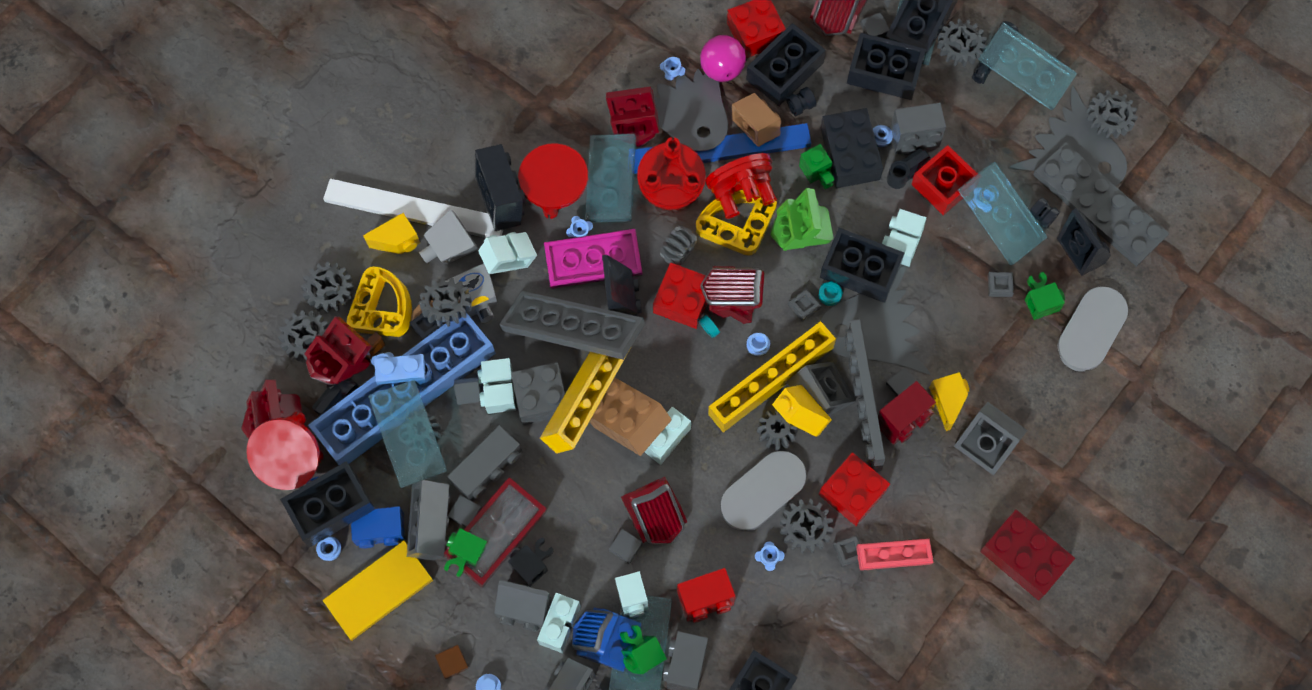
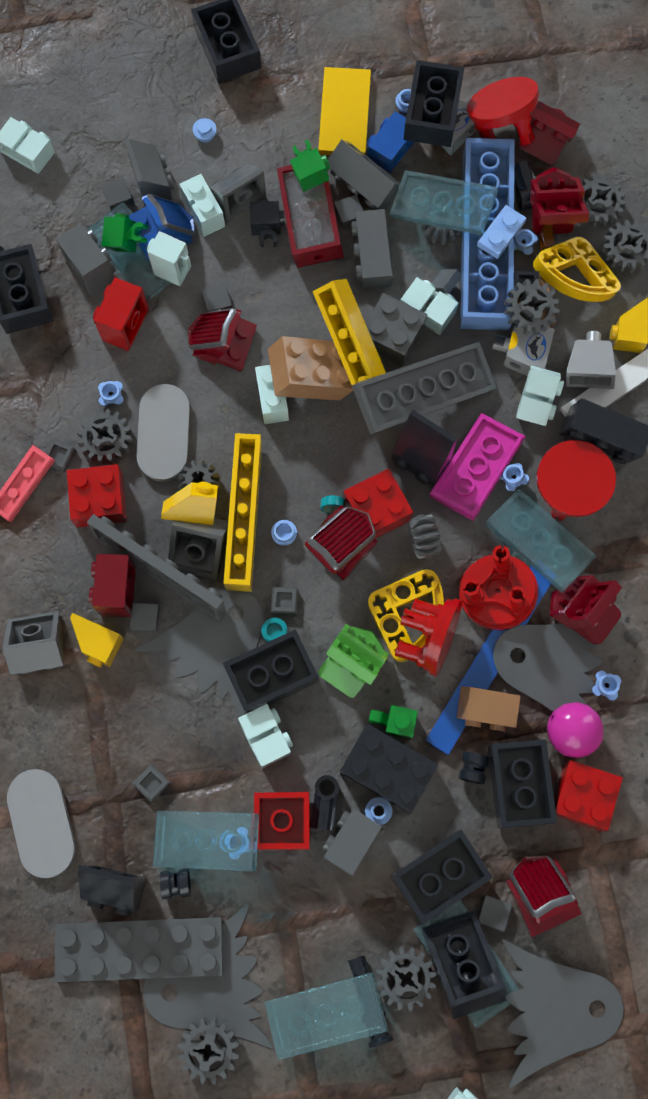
camera: 130 degrees right, 5 degrees up
(451, 662) = (245, 121): reddish brown tile -> none
(1043, 298) = (101, 804): green brick -> none

